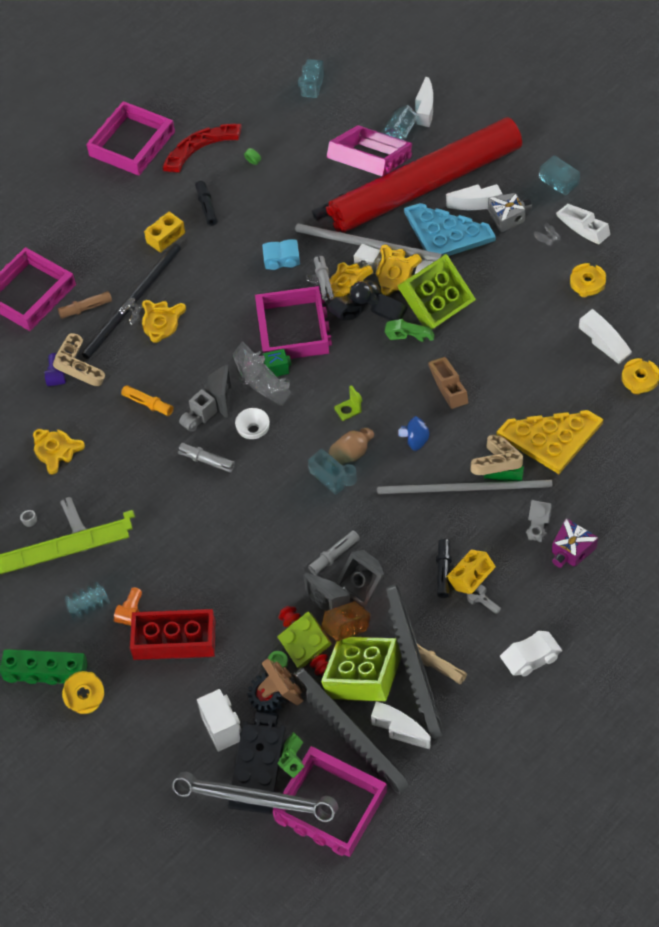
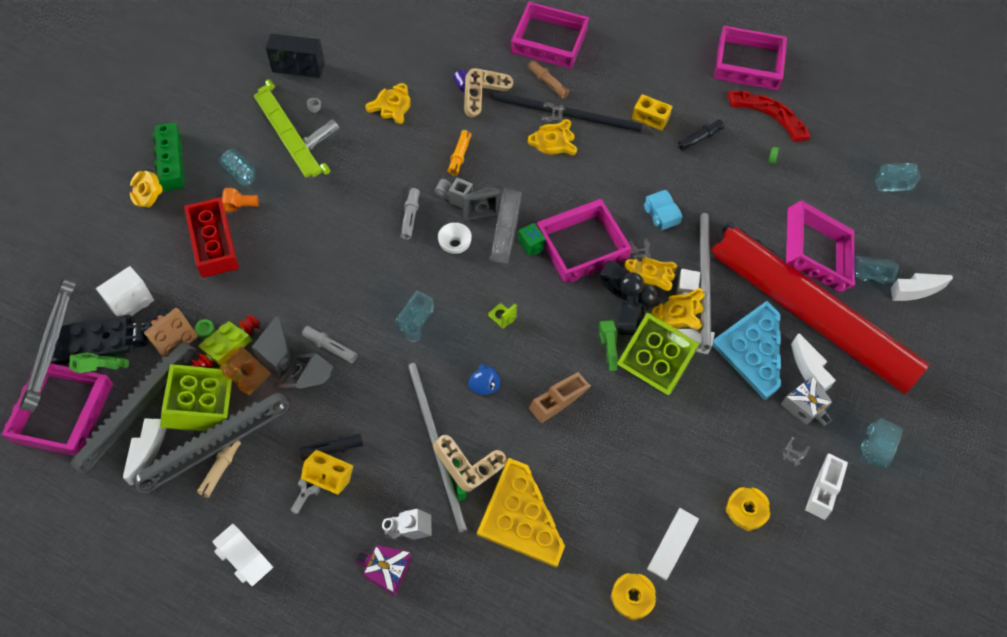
camera: 65 degrees right, 5 degrees up
(323, 276) = (650, 247): light grey pin -> none
(351, 446) = (453, 327): medium nougat hair -> none

